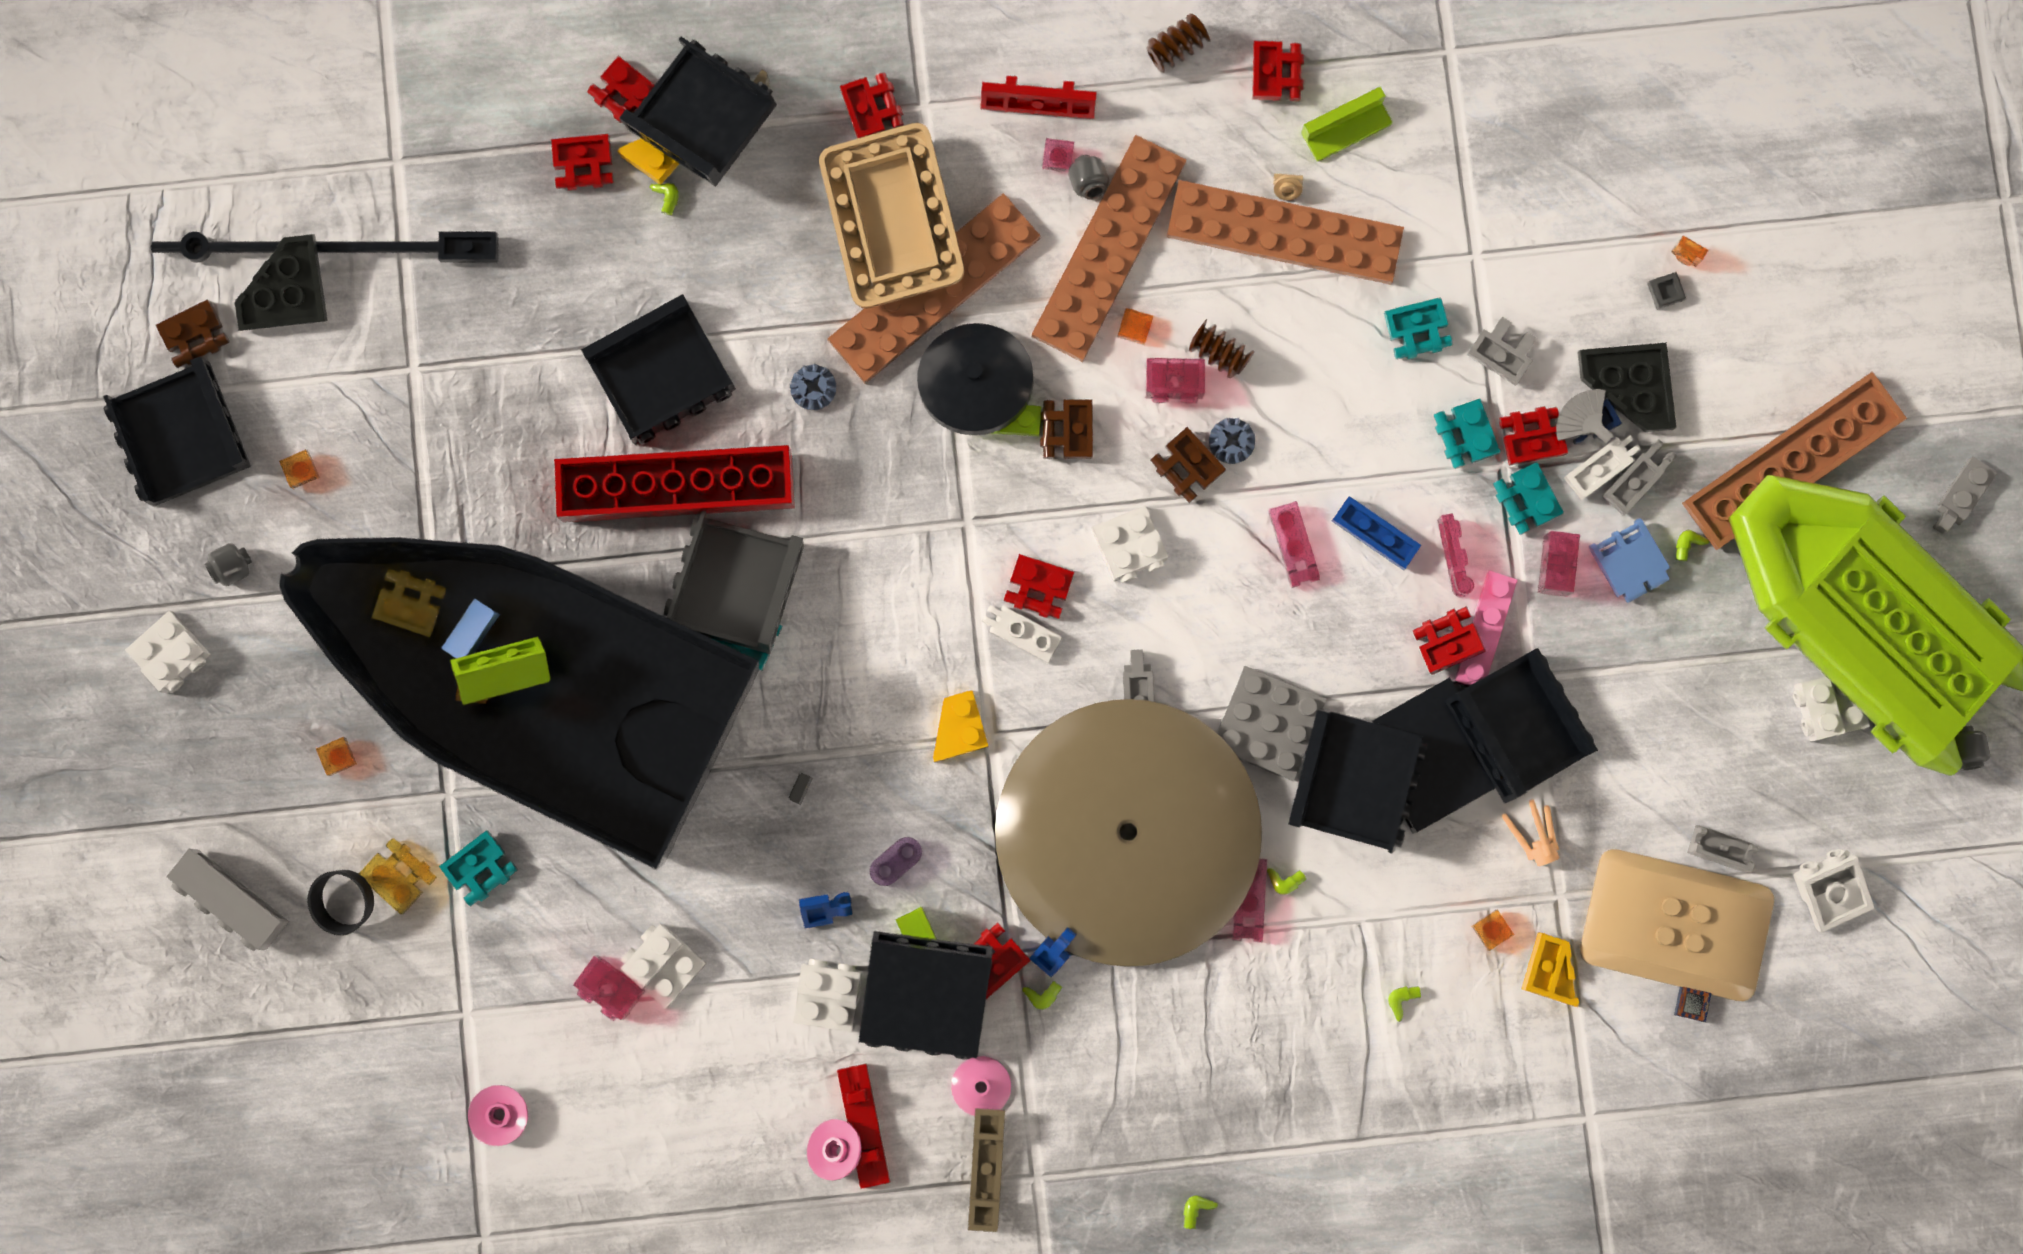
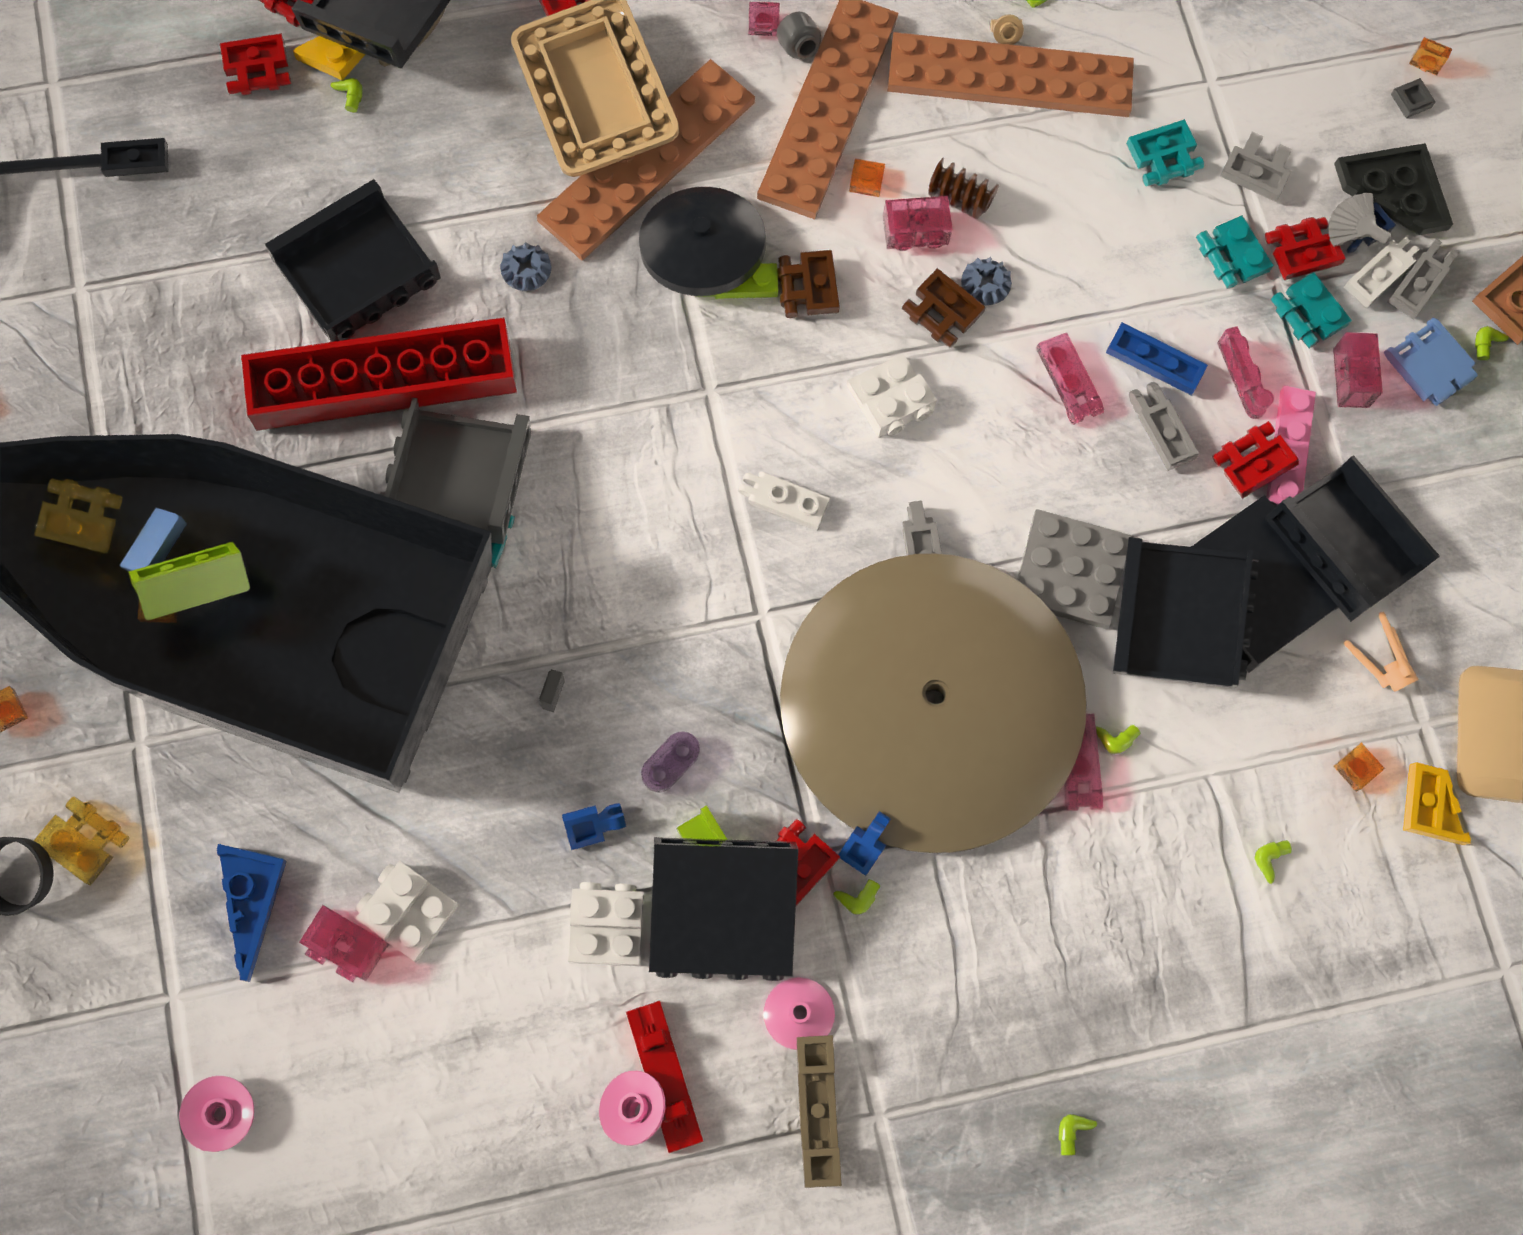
camera: 15 degrees left, 10 degrees down
(472, 861) = (172, 812): teal plate -> none
(535, 935) = (251, 890): none -> blue wing
(959, 727) = (726, 608): yellow wing -> none
(1042, 578) = (799, 440): red plate -> none
(1372, 600) = (1164, 427): none -> light grey hinge

